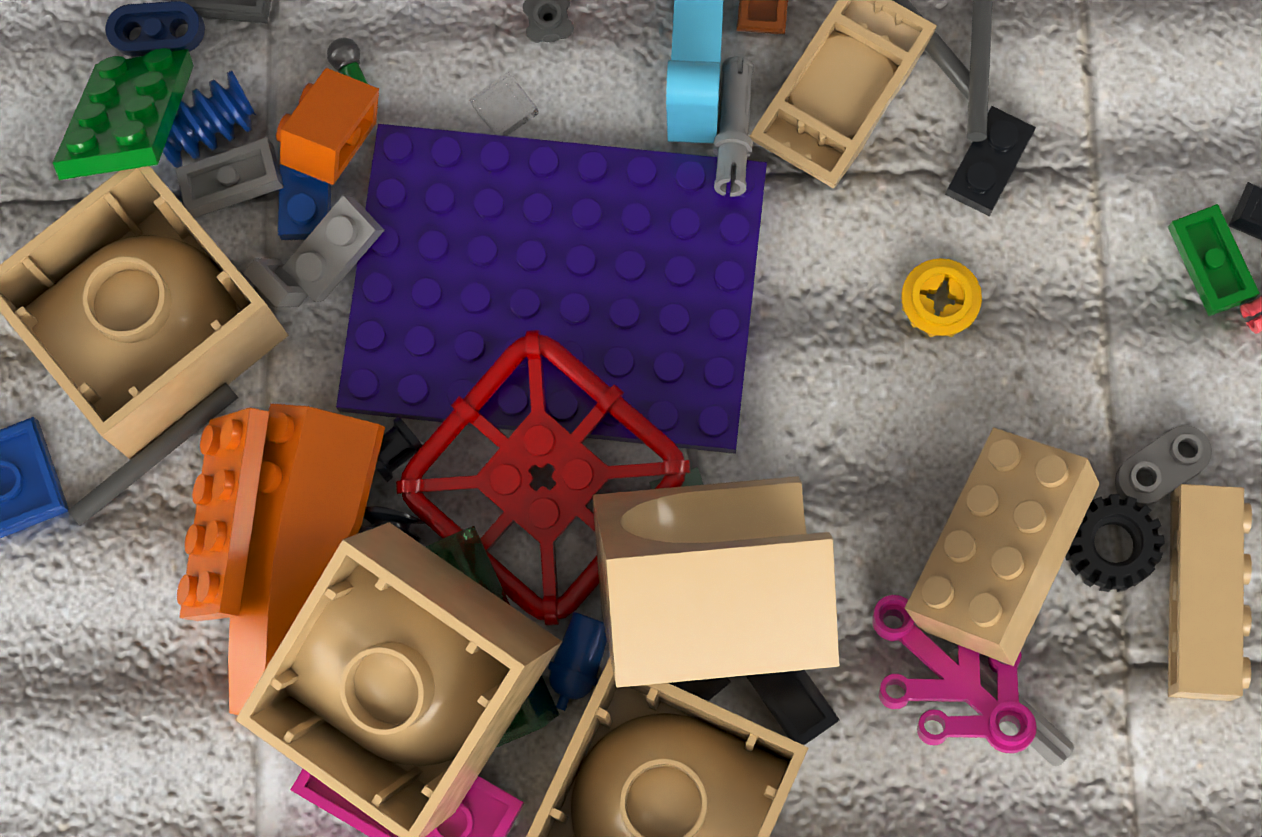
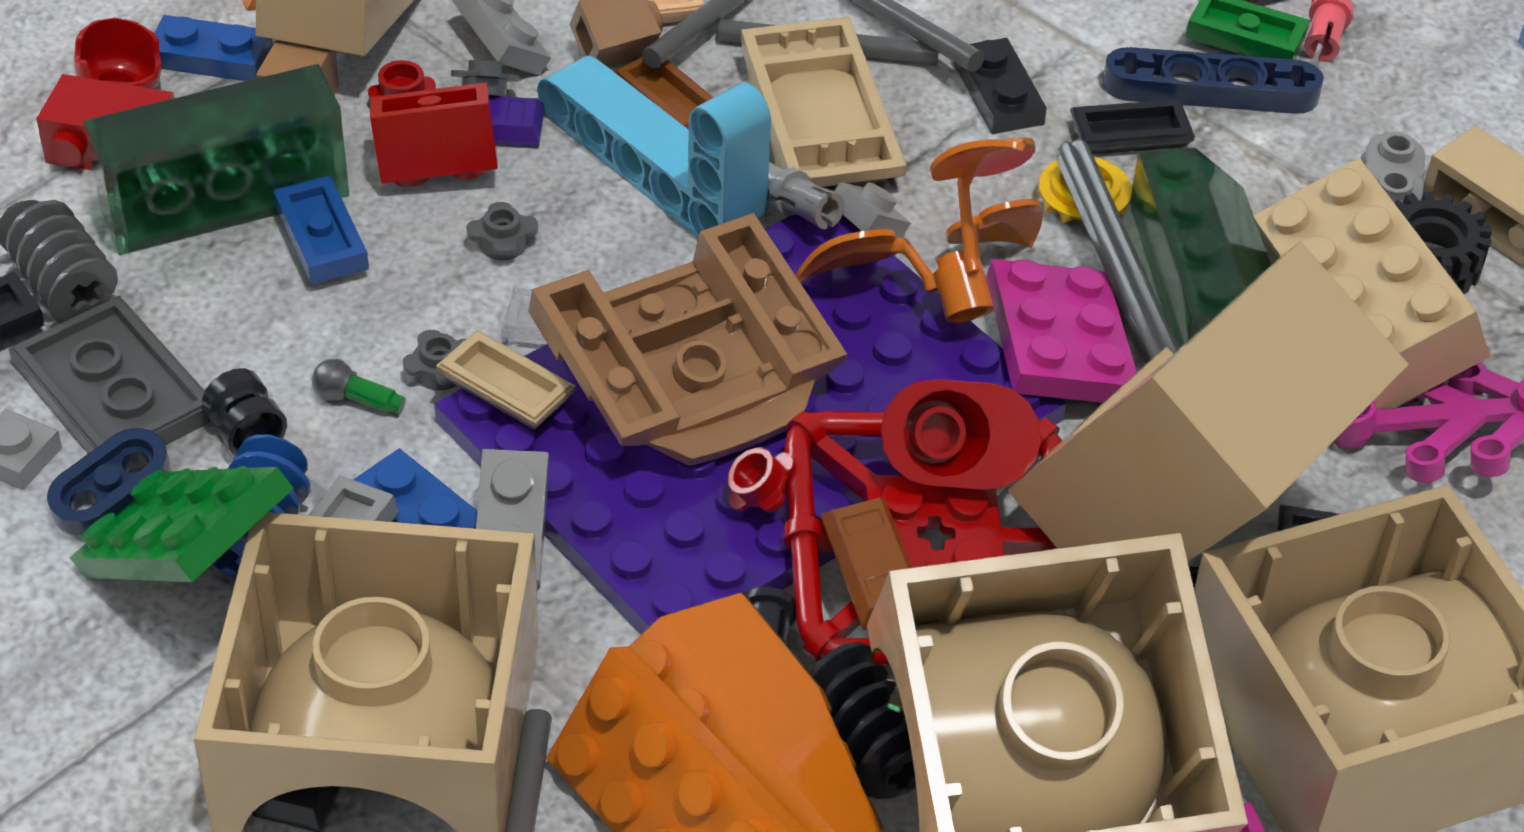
camera: 55 degrees left, 30 degrees down
(267, 40) = (241, 408): none -> black wheel
(327, 125) = (395, 420): orange brick -> none
(416, 148) = (505, 379): none -> tan tile
(420, 102) = (431, 349): none -> dark grey plate
(475, 469) = (865, 550): none -> dark orange tile
(476, 353) = (759, 479): none -> red plate
(526, 224) = (697, 352): none -> medium nougat slope
(589, 437) = (960, 434): none -> red piece
(746, 311) = (959, 273): none -> orange plant
(777, 199) = (871, 208): none -> light grey plate
(788, 397) = (1059, 330): none -> dark pink plate
(876, 393) = (1115, 250): none -> dark grey axle
(941, 430) = (1194, 236): none -> clear green slope
(1037, 271) = (1133, 126): none -> black tile
(1146, 274) = (1293, 82): none -> dark blue beam

